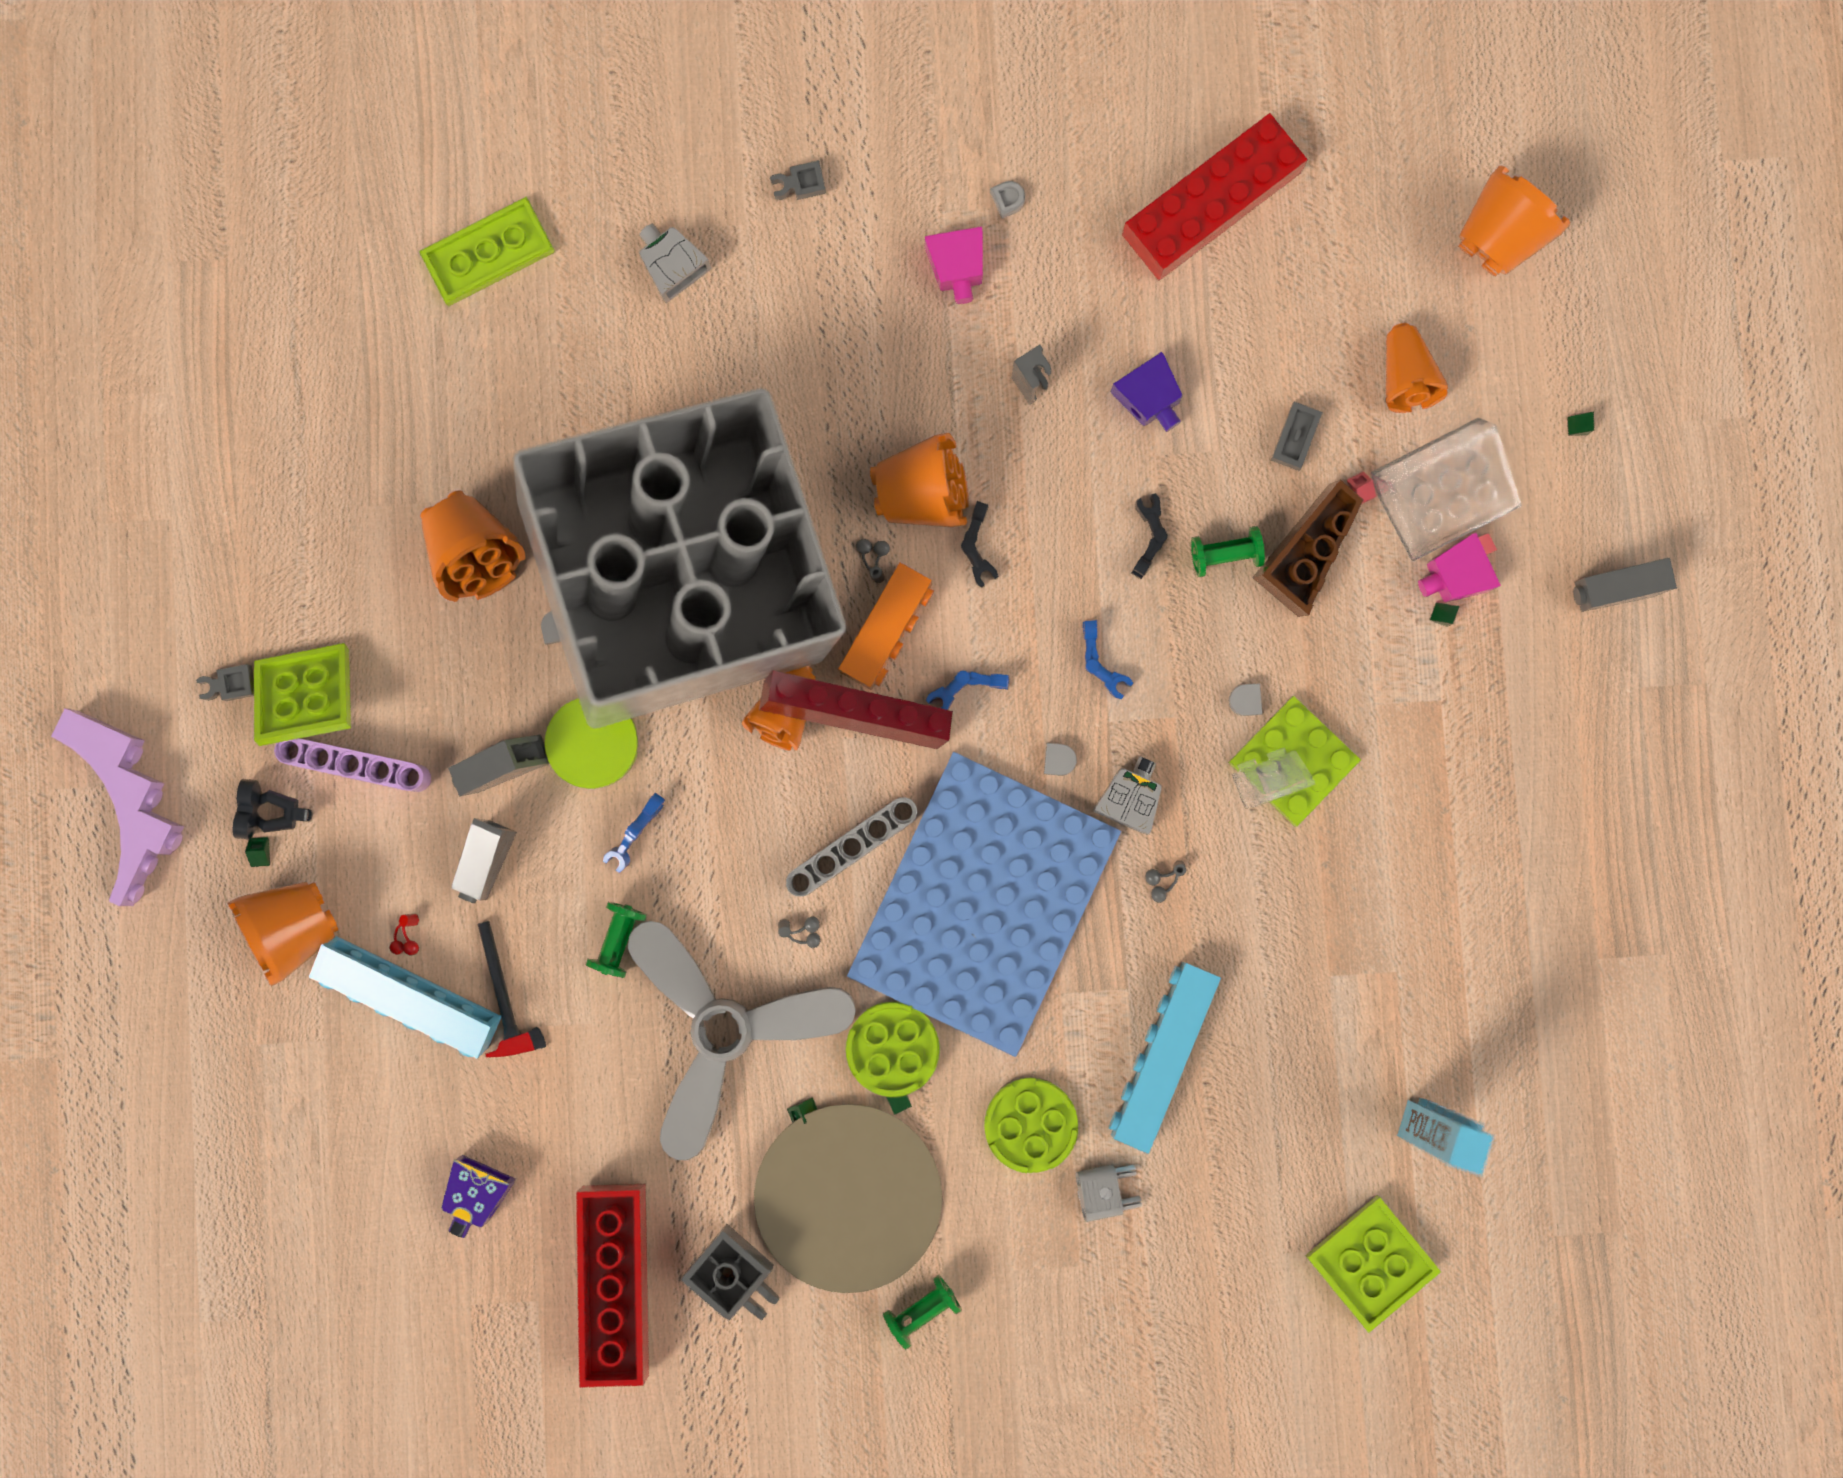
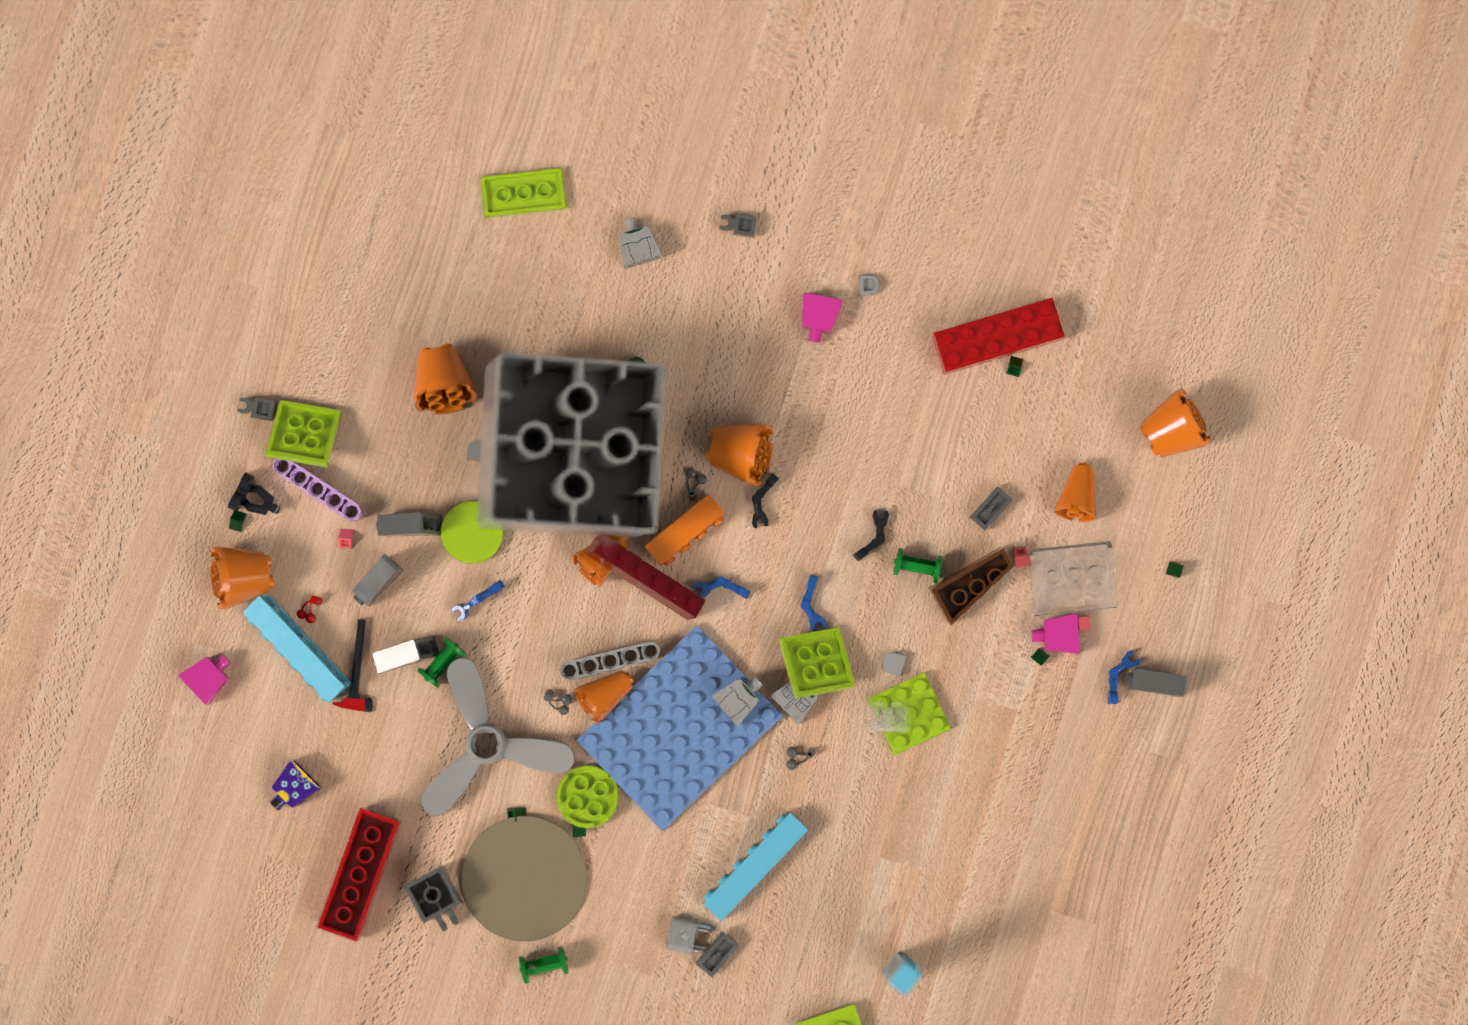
camera: 15 degrees right, 0 degrees up
(132, 793) = (174, 455): lavender arch -> none
(294, 1089) = (206, 677): none -> dark pink torso
(419, 818) = (345, 538): none -> coral piece
(561, 947) = (405, 654): none -> slope
(860, 897) = (603, 694): none -> orange cone
(1028, 373) = (837, 402): dark grey hinge -> none
(1031, 1125) = (655, 877): lime tile -> none
(1052, 831) = (738, 699): none -> light grey torso
(1059, 759) = (761, 656): light grey tile -> none
(1141, 739) = (816, 662): none -> lime plate
(1150, 393) = (909, 446): dark purple torso -> none
(1159, 1201) = (716, 954): none -> dark grey plate
(1251, 232) = (1014, 366): none -> dark green piece
(1566, 628) = (1114, 672): none -> blue piece

